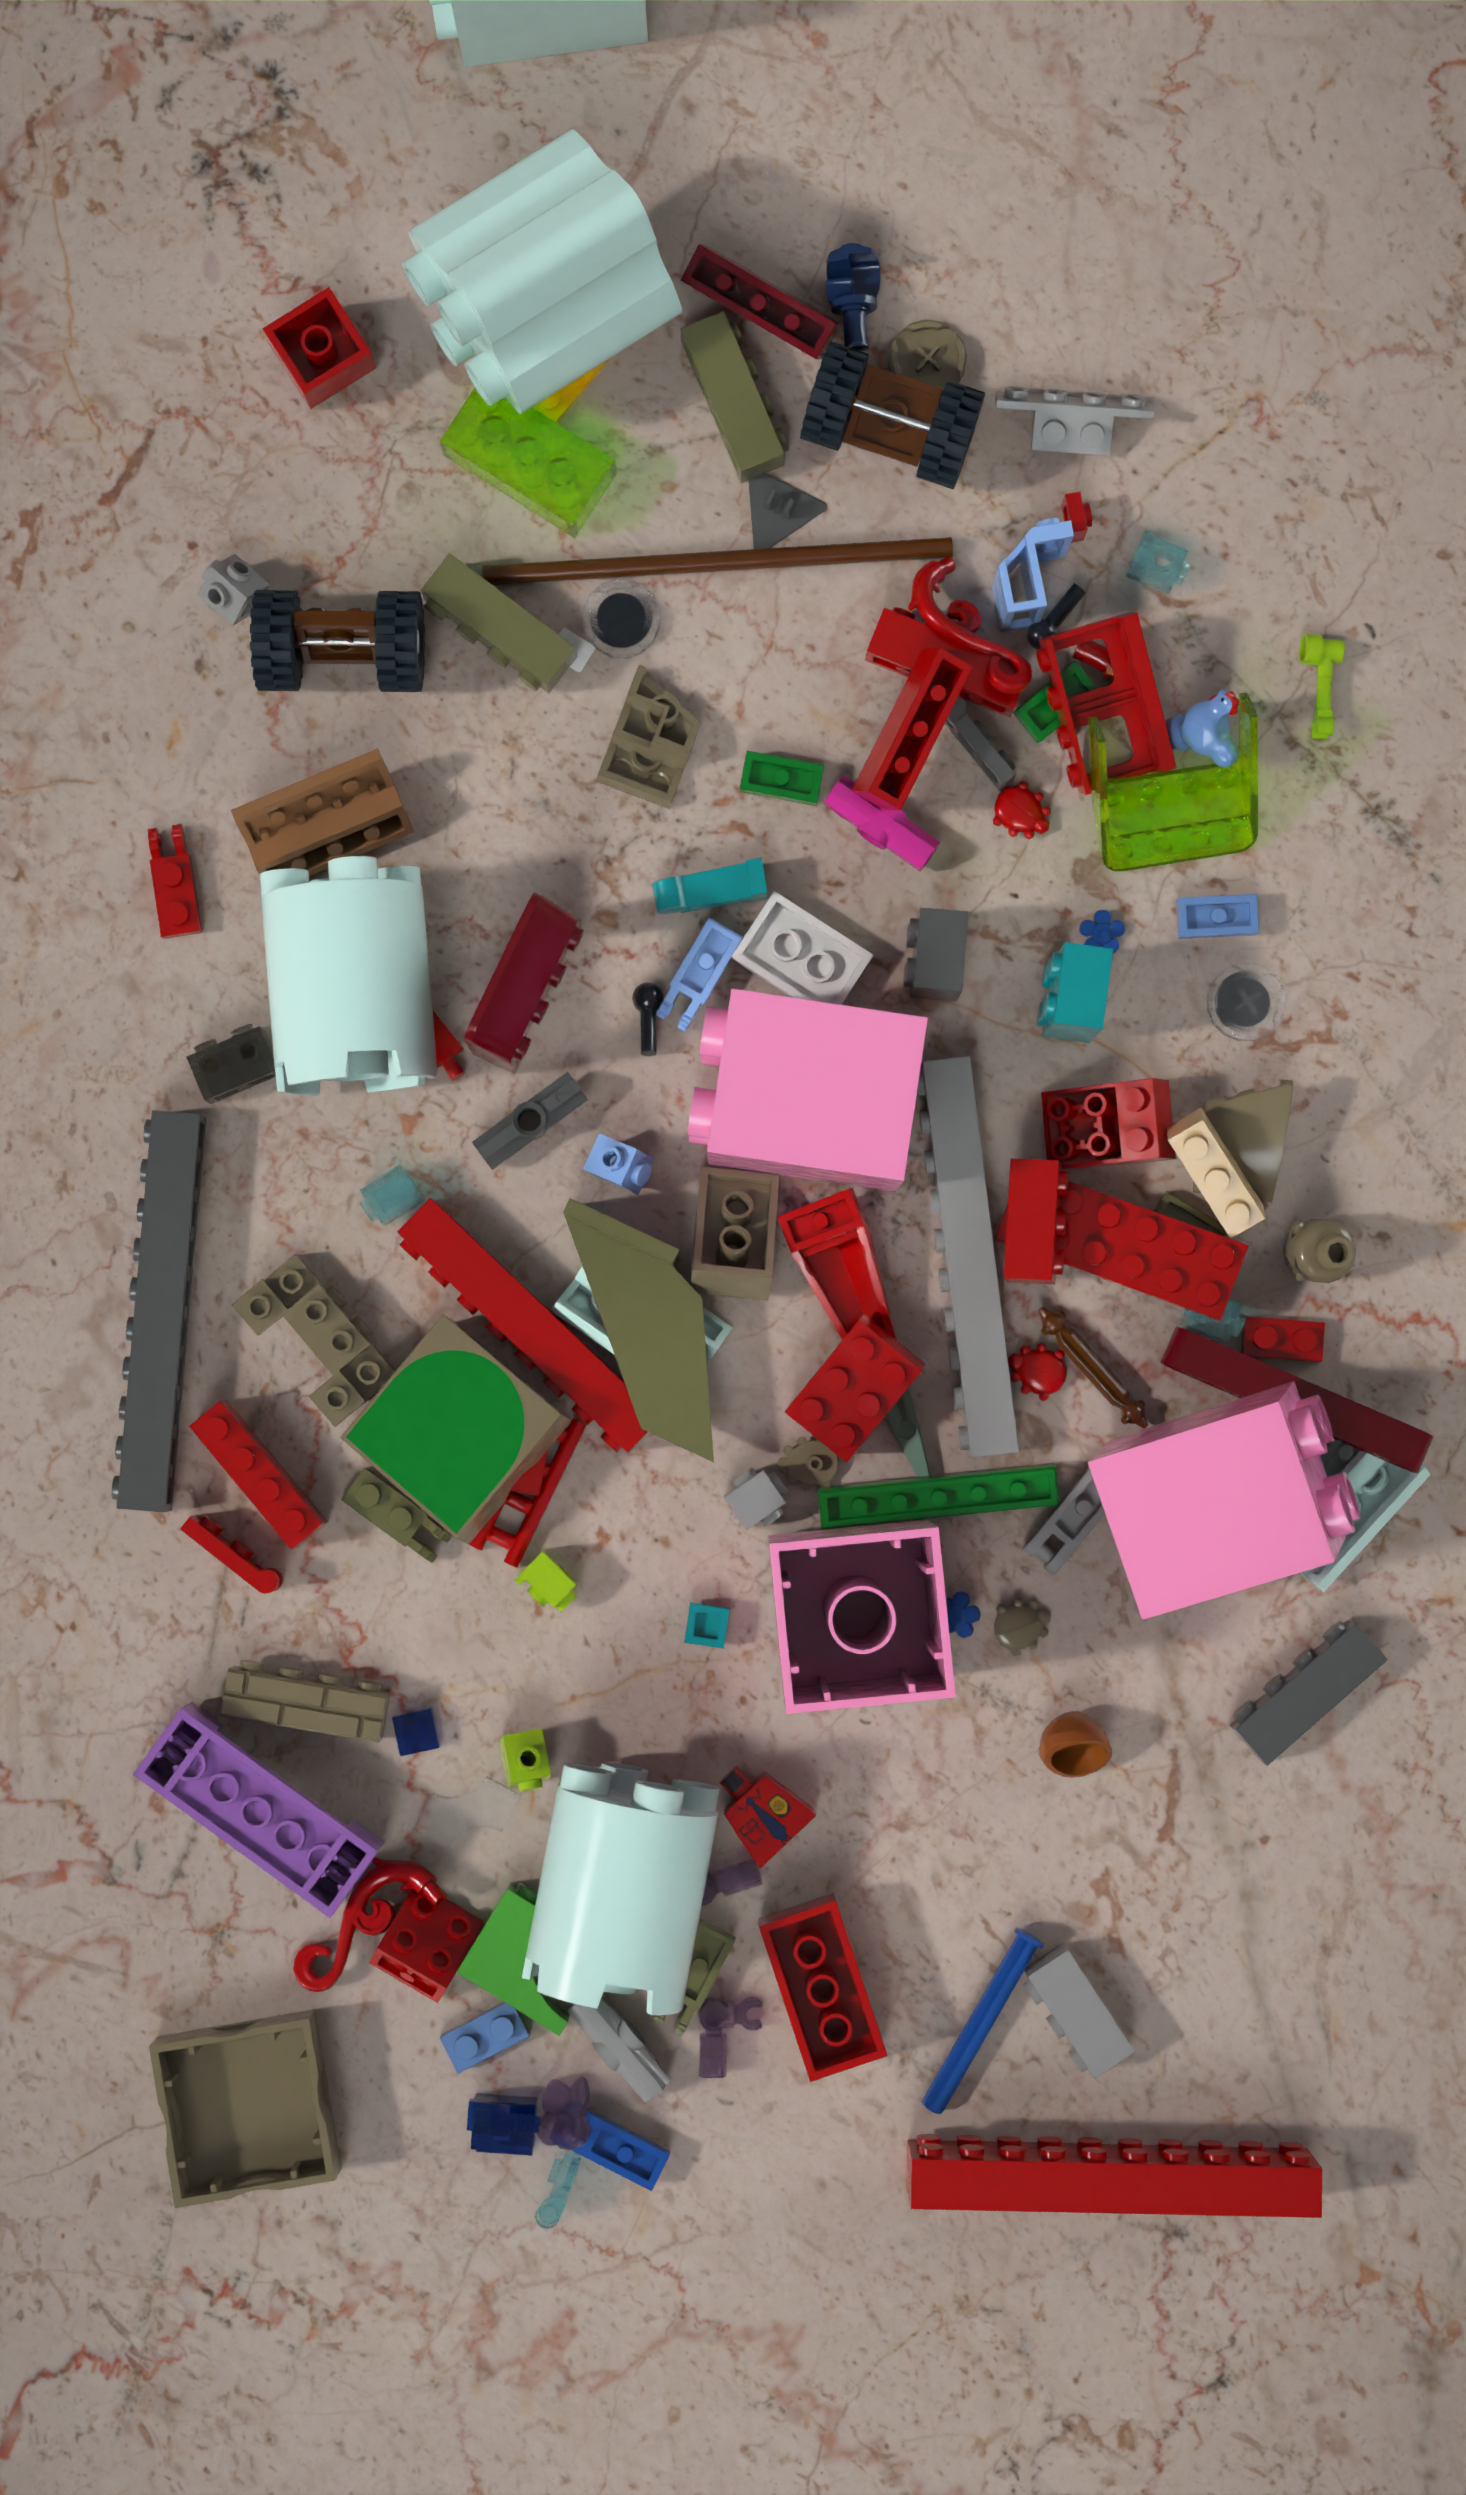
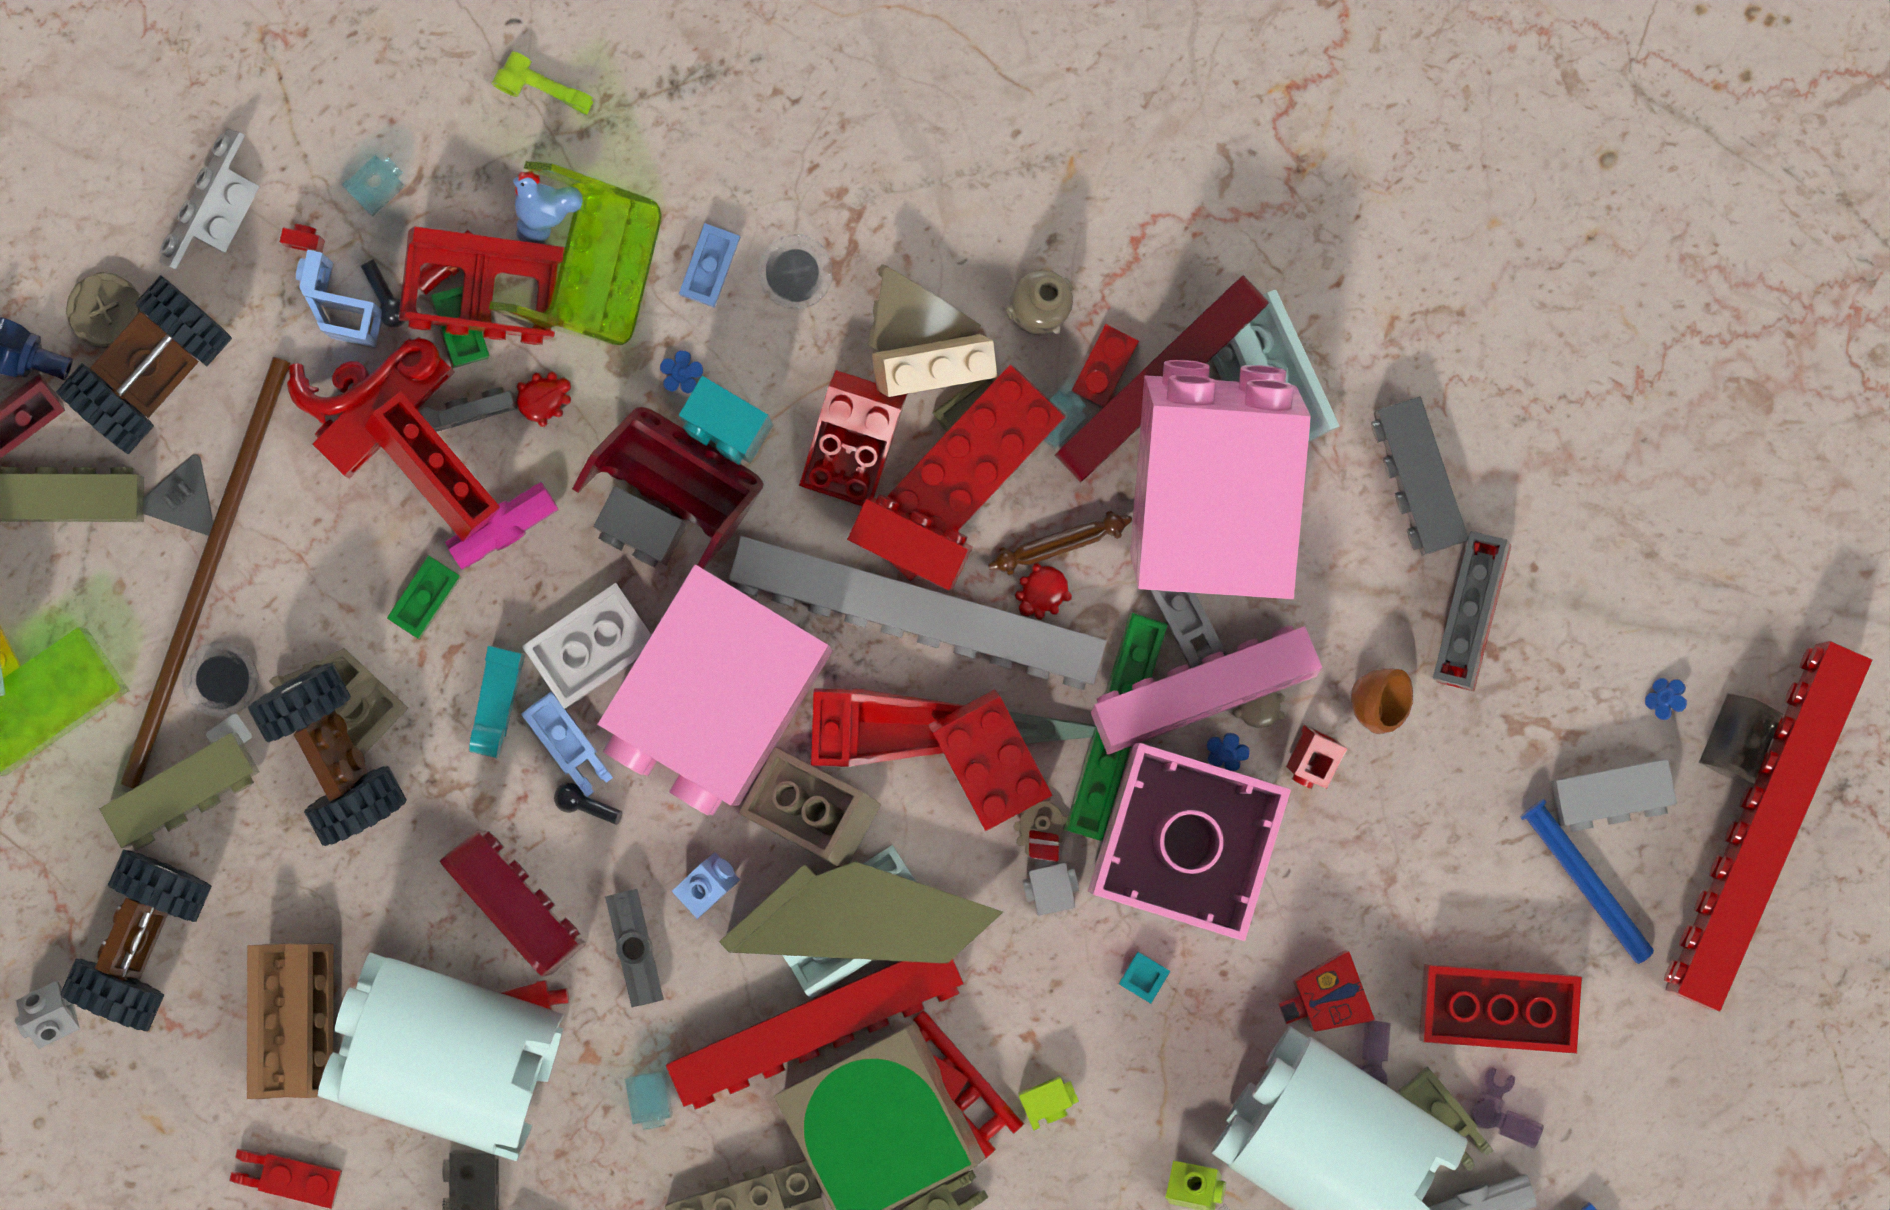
camera: 65 degrees left, 0 degrees up
(585, 762) = (351, 797): none -> black plate
(793, 1474) = (1043, 845): none -> red sticker
(989, 1715) = (1326, 761): none -> brick
(1004, 967) = (677, 473): none -> dark red windscreen
(1012, 1569) = (1205, 689): none -> bright pink brick
(1186, 2114) = (1740, 738): none -> clear smoke brick
(1193, 2023) = (1666, 697): none -> blue plant
(1198, 1798) = (1472, 611): none -> dark grey piece

